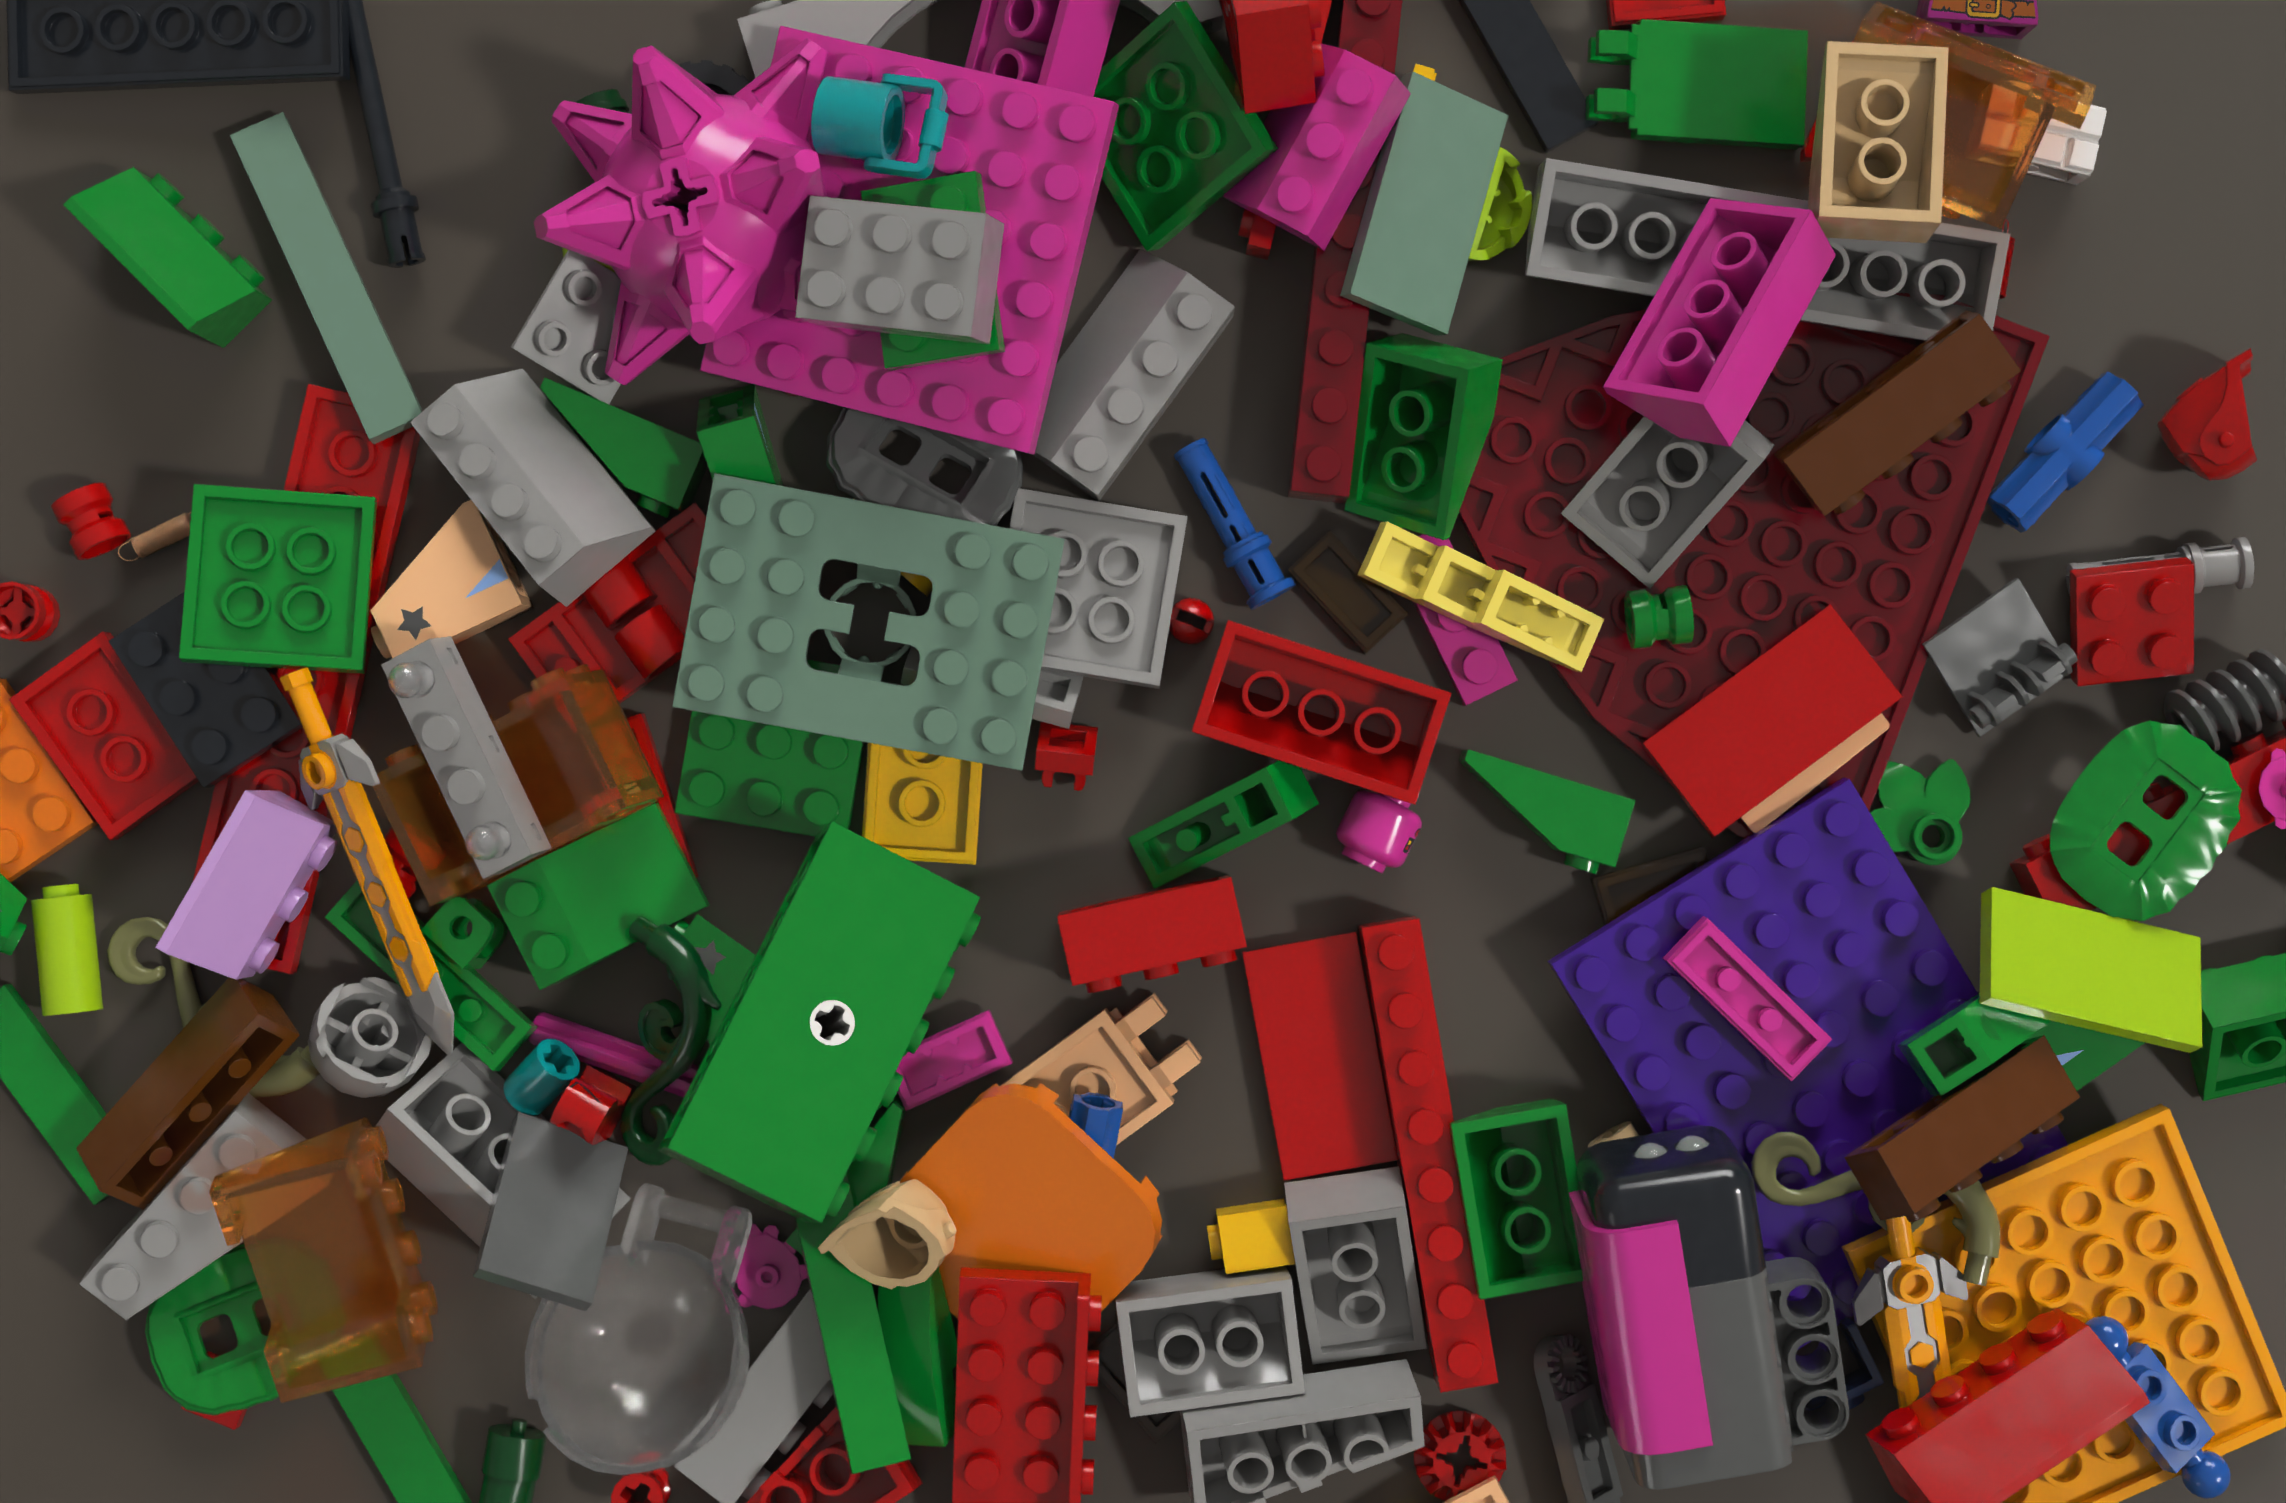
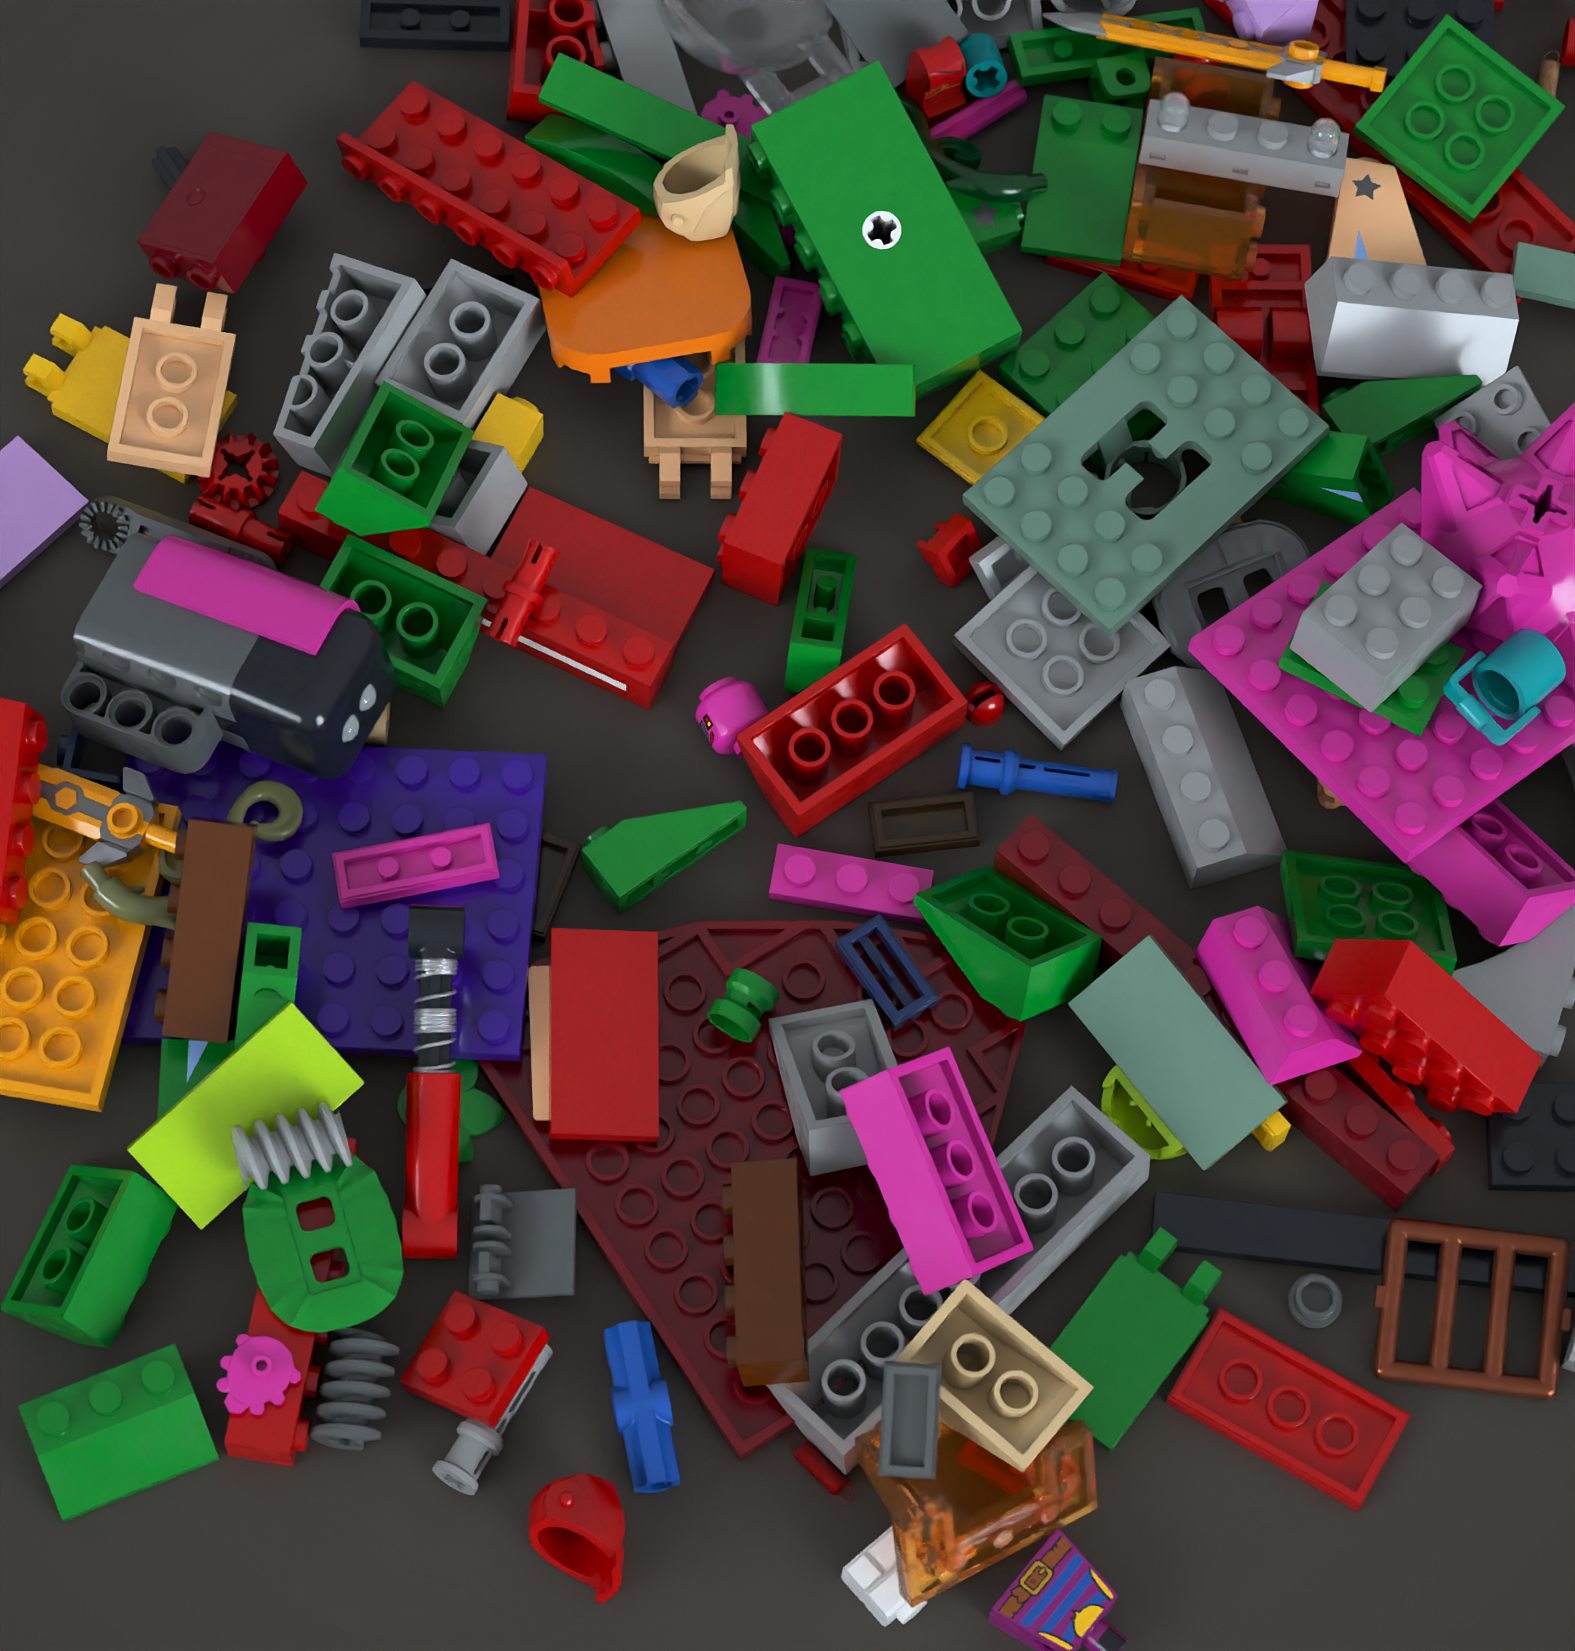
camera: 120 degrees right, 20 degrees down
(1028, 973) = (815, 389): none -> green slope
(1392, 1303) = (394, 466): none -> green slope
(1428, 1094) = (522, 593): none -> red pin
(1481, 596) = (851, 895): light yellow slope -> none
(1509, 562) = (910, 1008): none -> dark blue tile
(1518, 1409) = (241, 527): none -> red pin
(1981, 174) = (910, 1419): none -> dark grey tile
(2033, 753) = (433, 1089): none -> piece
(2105, 901) = (290, 1146): none -> light grey piece

